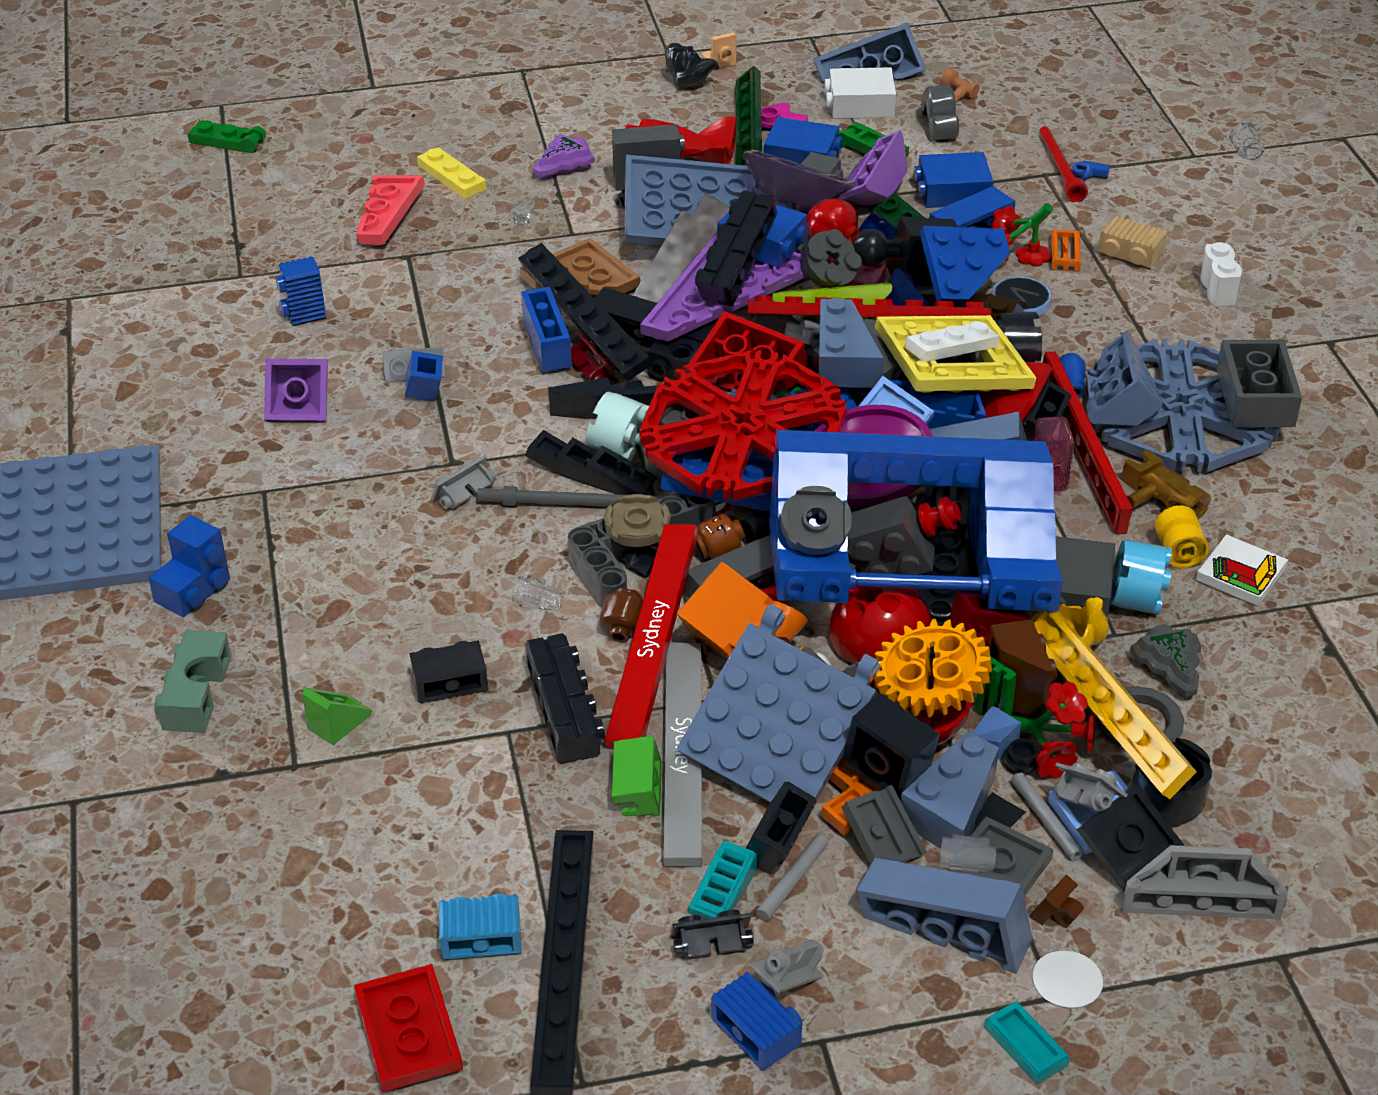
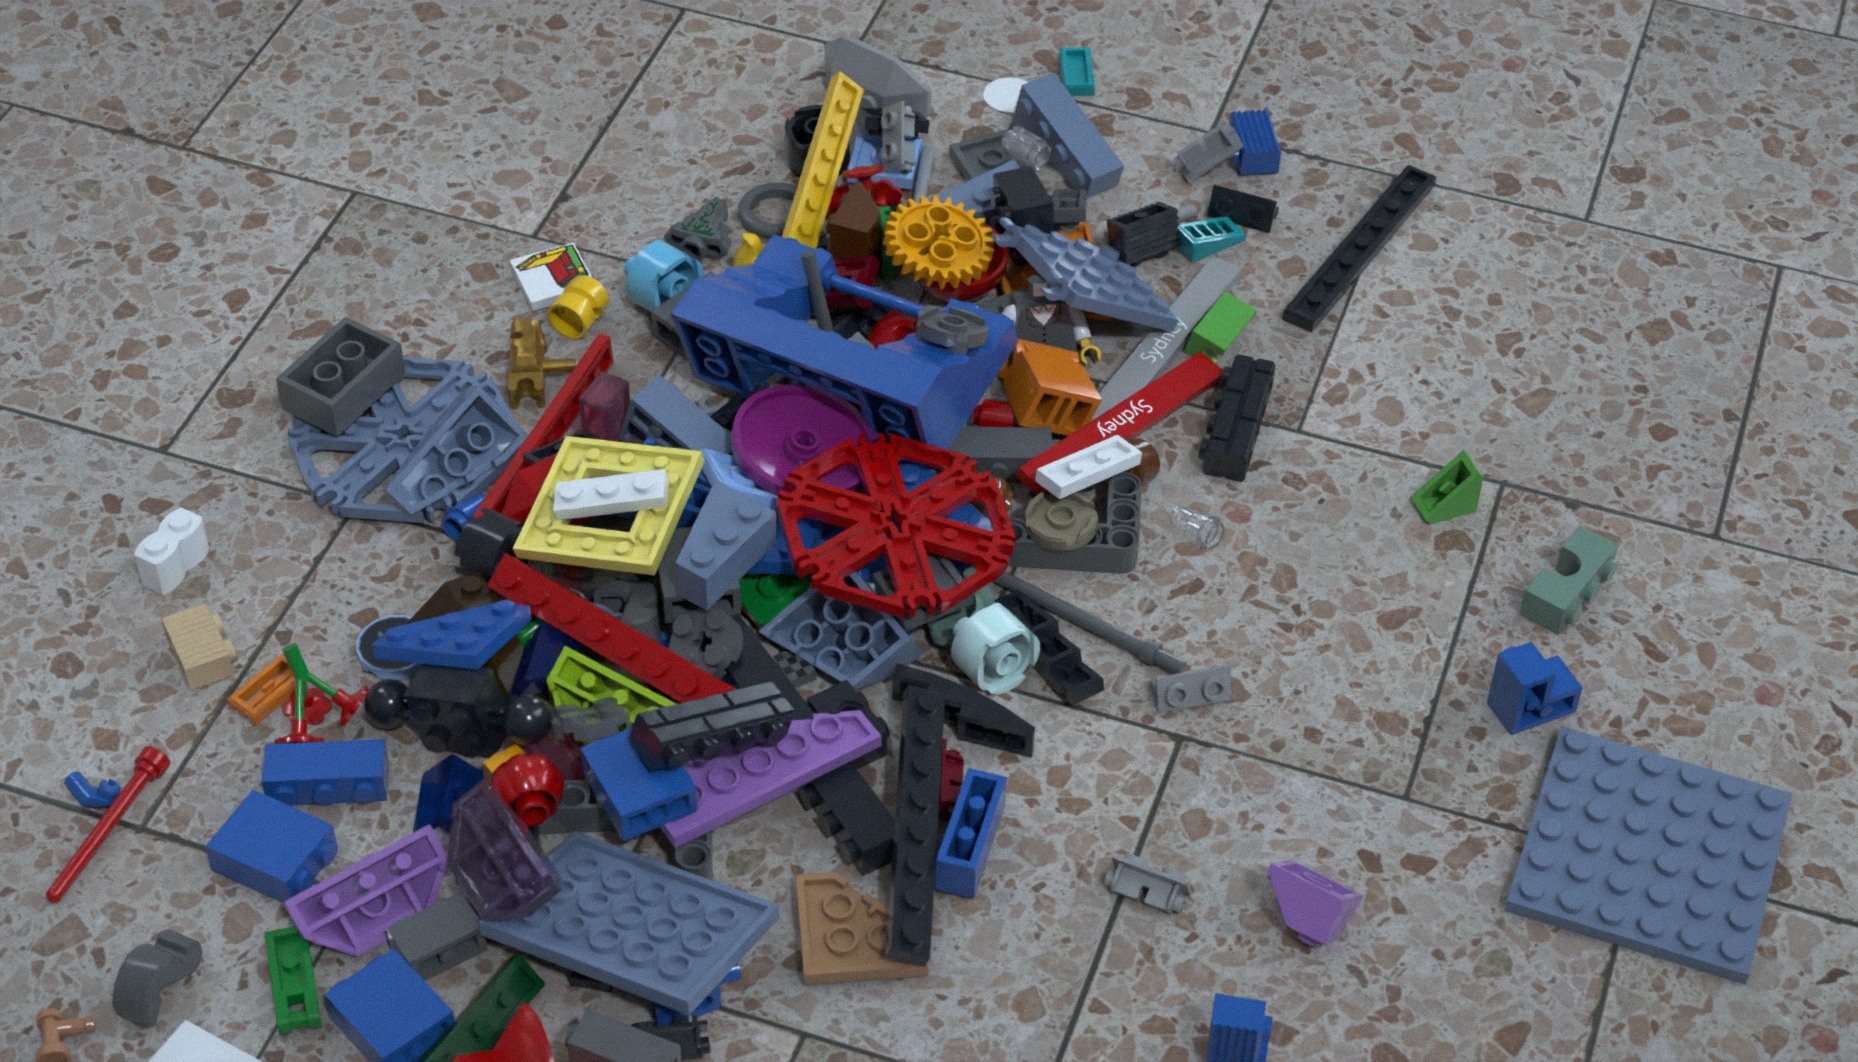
camera: 150 degrees left, 5 degrees up
(408, 1027) = (1506, 243): red plate -> none
(423, 376) = (1157, 828): blue brick -> none
(448, 671) = (1325, 485): black brick -> none
(479, 926) = (1417, 276): dark azure brick -> none
(641, 548) = (1088, 466): none -> white plate
(681, 247) = (732, 856): wedge -> none
(738, 335) = (810, 636): red wedge -> none
(893, 208) = (405, 807): dark green hinge -> none
(979, 554) = (816, 290): none -> dark grey bar
(1057, 902) = (980, 119): reddish brown tile -> none

